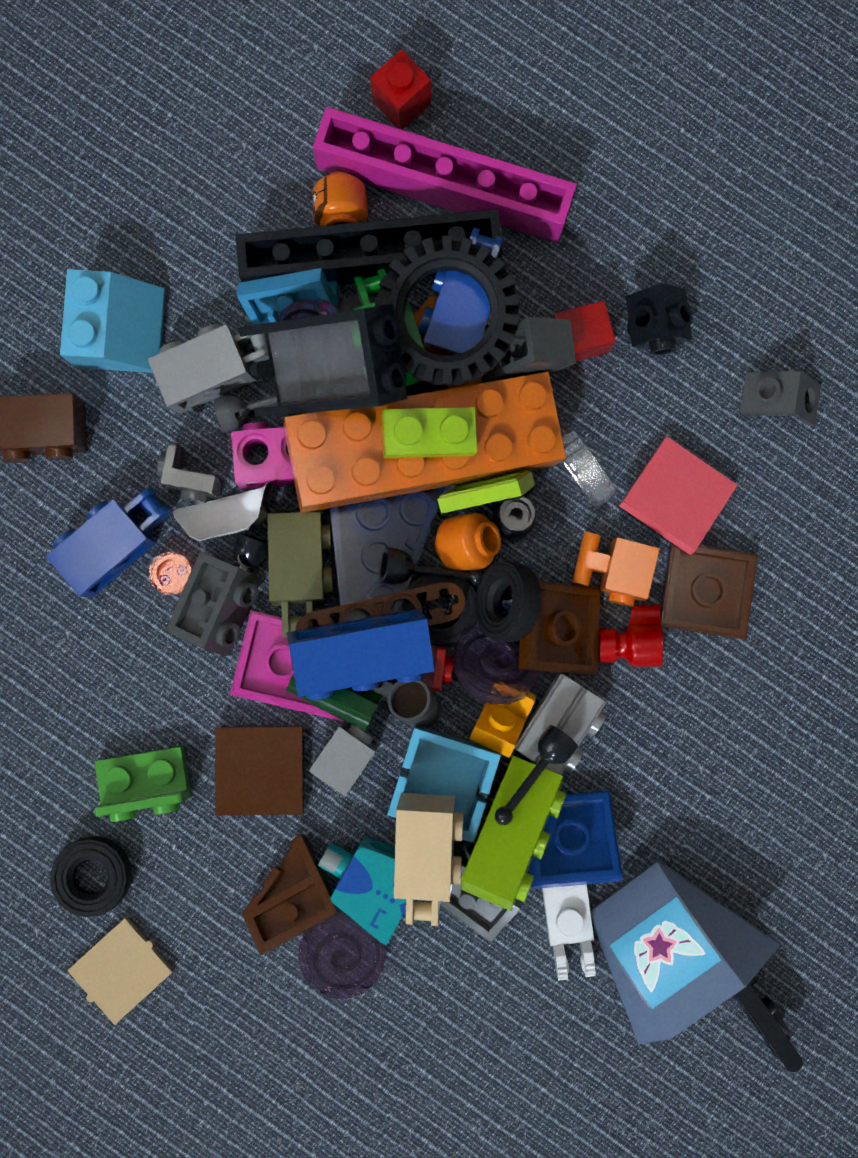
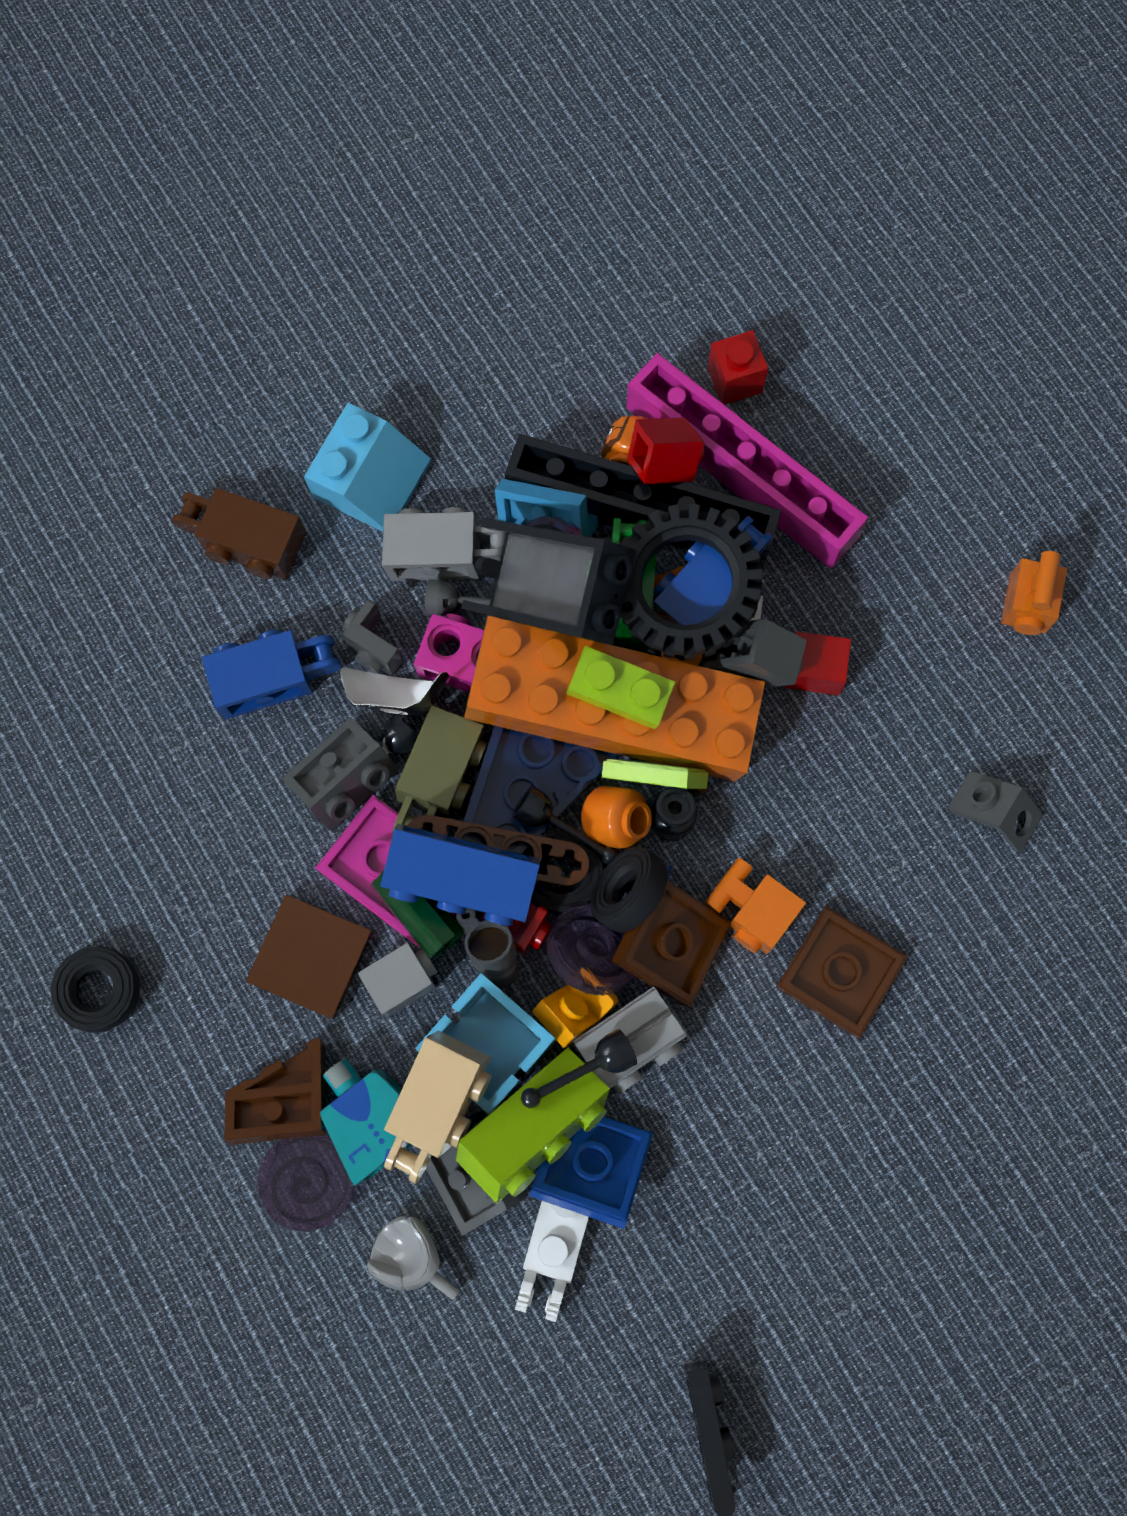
camera: 25 degrees right, 10 degrees down
(120, 970) = (78, 1099): tan piece -> none
(142, 782) = (189, 916): bright green bracket -> none
(170, 572) = (311, 726): clear red tile -> none
(373, 196) = (665, 450): none -> red brick
(453, 979) = (407, 1257): none -> light grey piece
(586, 470) = (765, 796): clear beam -> none
(640, 644) = (744, 994): red piece -> none
(659, 318) = (900, 679): black brick -> none
(675, 951) = (648, 1327): sand blue wedge -> none
(678, 495) = (849, 862): coral tile -> none
(742, 193) = (1034, 594): none -> orange brick

